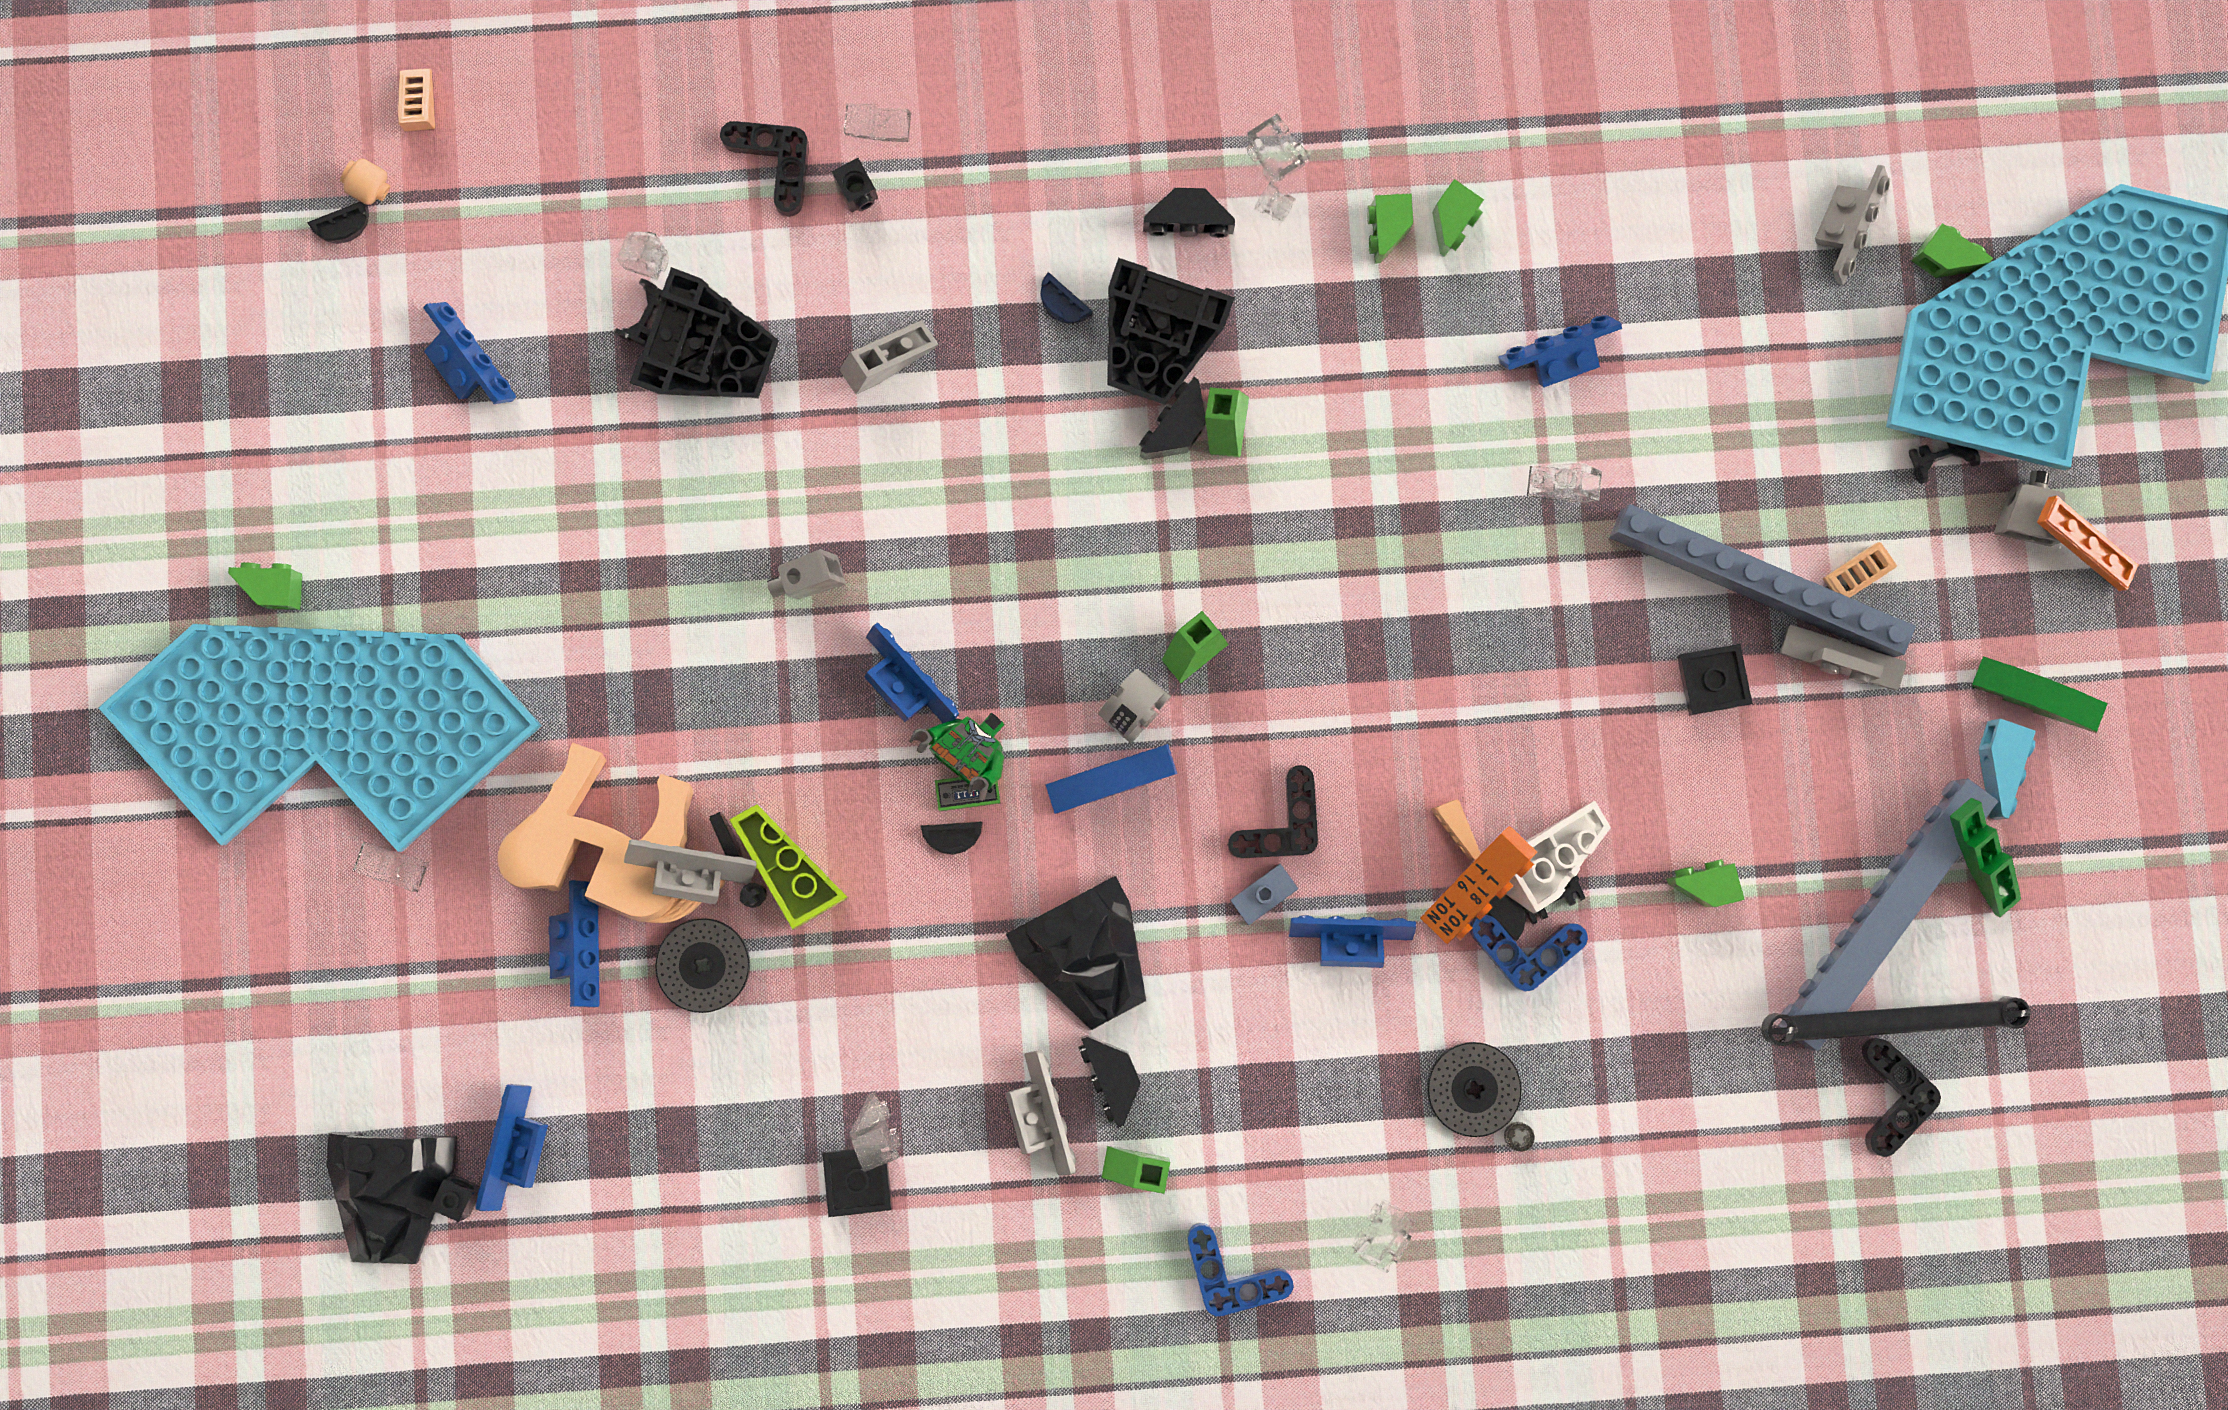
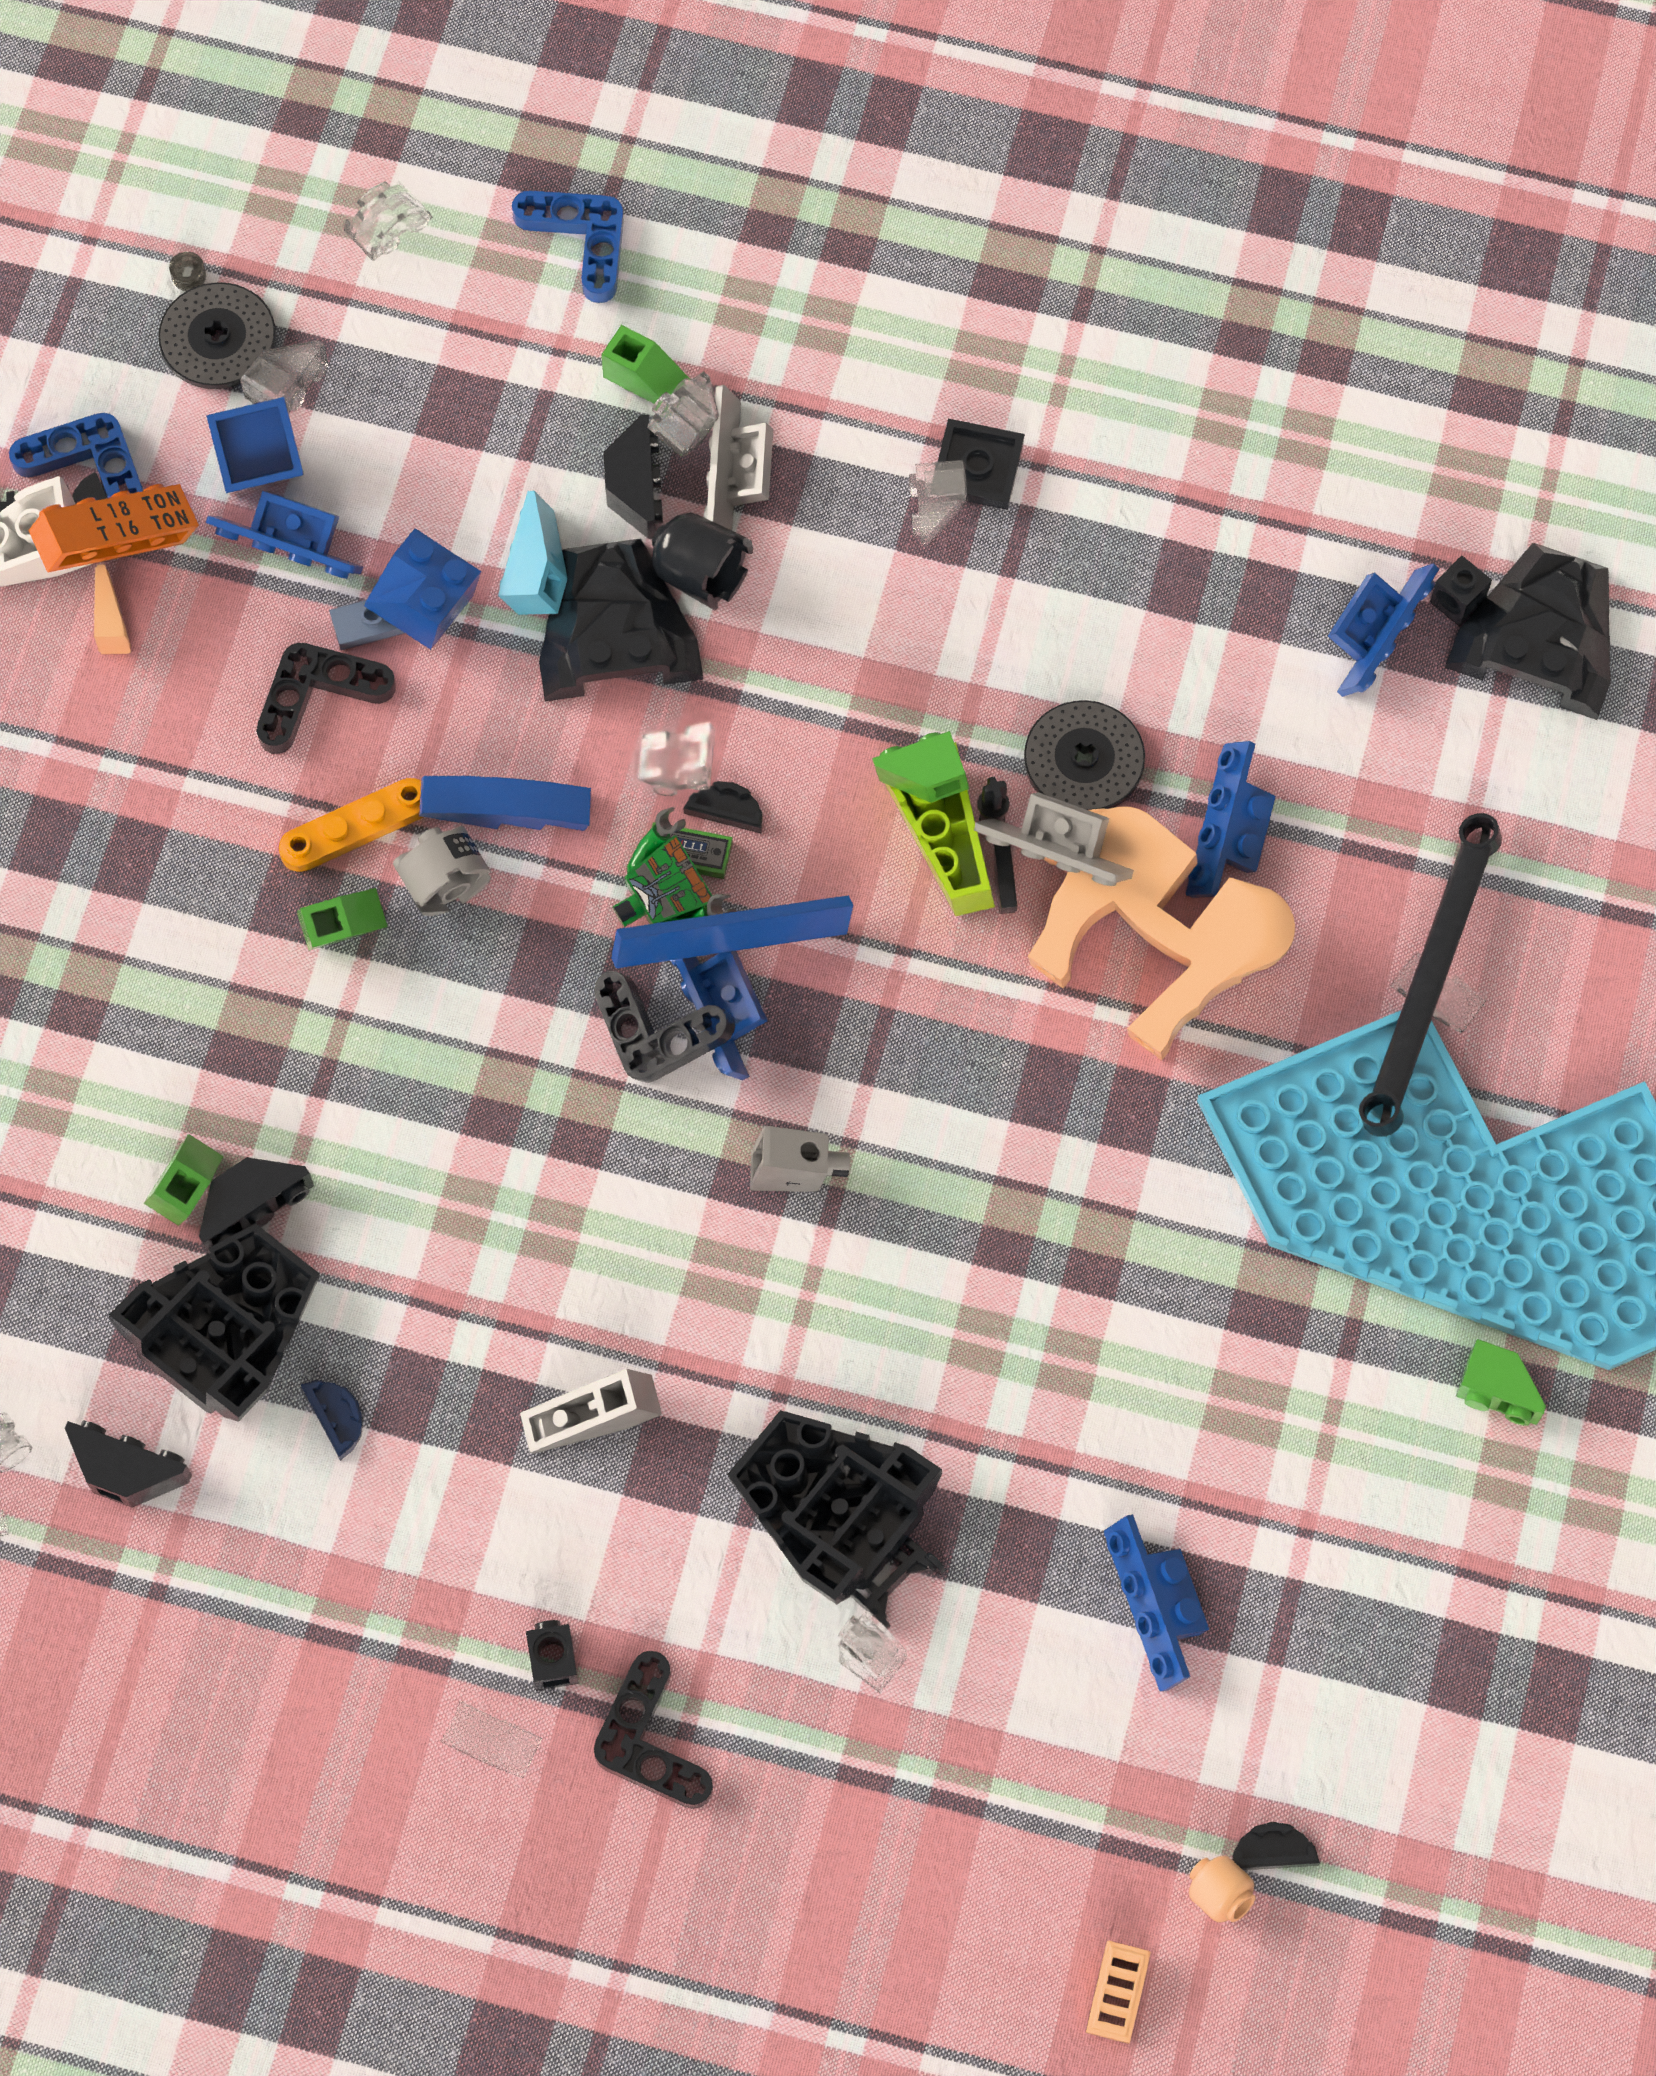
camera: 155 degrees left, 15 degrees down
(395, 875) = (1430, 975): none -> black piece
(803, 893) = (924, 769): none -> bright green slope
(907, 725) = (731, 931): none -> blue tile
(944, 631) = (648, 1042): none -> black beam
(997, 856) = (678, 760): none -> clear cylinder
(1038, 1021) = (700, 558): none -> black cylinder
(1087, 1137) = (686, 414): none -> clear slope
(1158, 976) = (536, 565): none -> medium azure slope
(1216, 727) = (351, 826): none -> light orange plate
(1233, 923) = (423, 588): none -> blue slope
(1404, 995) = (255, 445): none -> blue piece
(1409, 1068) = (285, 373): none -> clear slope

